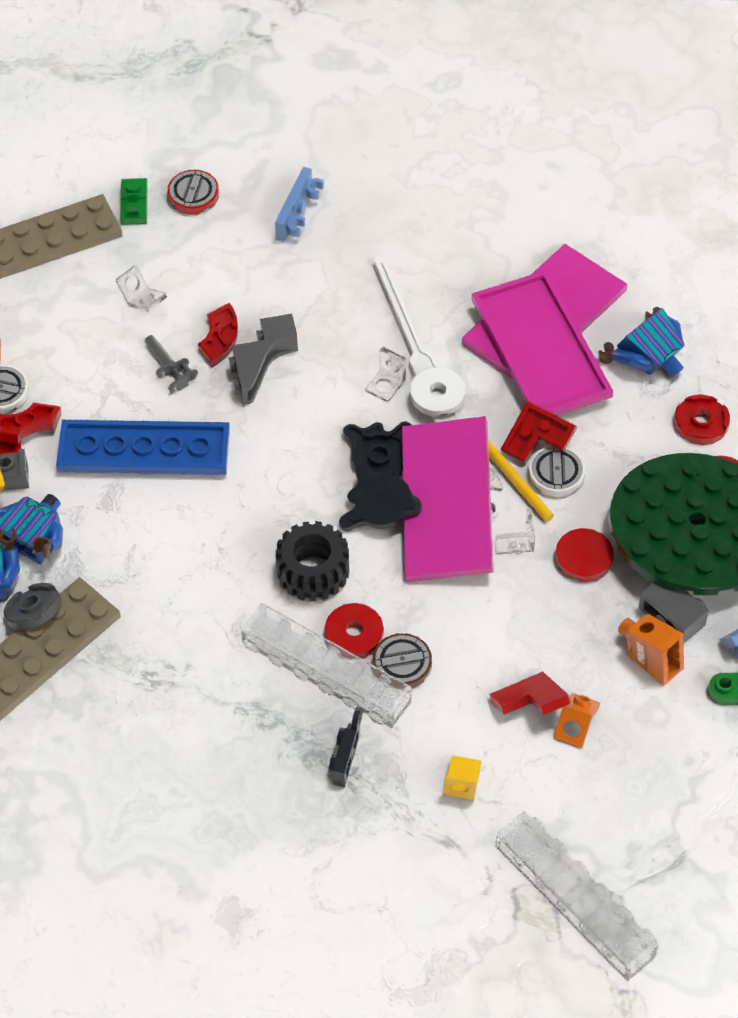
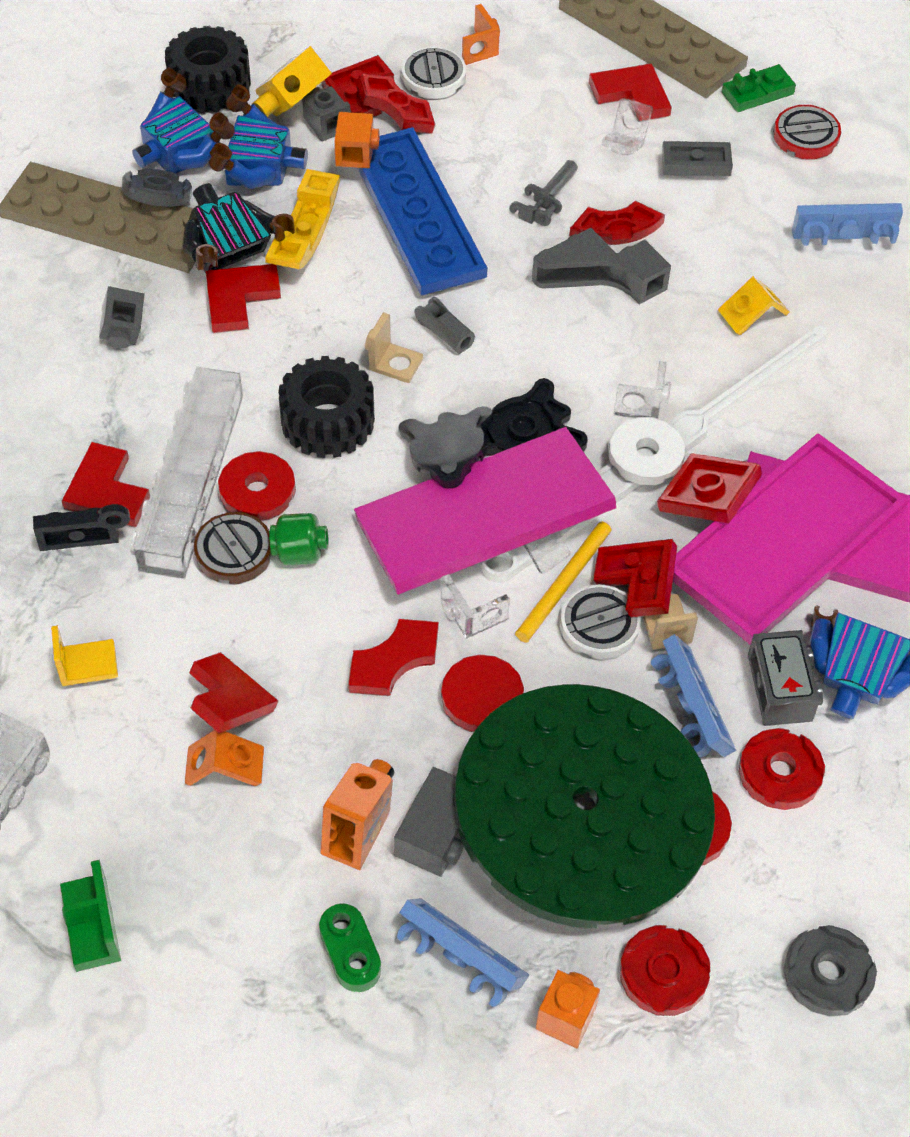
camera: 65 degrees right, 0 degrees up
(66, 456) = (355, 140): none -> orange brick
(89, 269) = (633, 83): none -> red tile
(112, 569) = (229, 229): none -> torso
(118, 523) = (310, 216): none -> yellow slope
(157, 667) = (121, 317): none -> dark grey brick
(160, 593) = (233, 287): none -> red tile
(186, 263) = (697, 158): none -> dark grey plate
(257, 470) = (446, 325): none -> dark grey bar
(269, 510) = (382, 351): none -> tan bracket
(313, 733) = (98, 484): none -> red tile
(340, 289) = (749, 305): none -> yellow bracket
(418, 616) = (298, 538): none -> green head
(486, 368) = (709, 488): none -> red tile
(539, 605) = (379, 667): none -> red tile
(583, 435) = (675, 622): none -> tan bracket
(638, 440) = (694, 698): none -> medium blue plate
(643, 390) = (784, 677): none -> brick
(667, 825) = (90, 920): none -> green panel

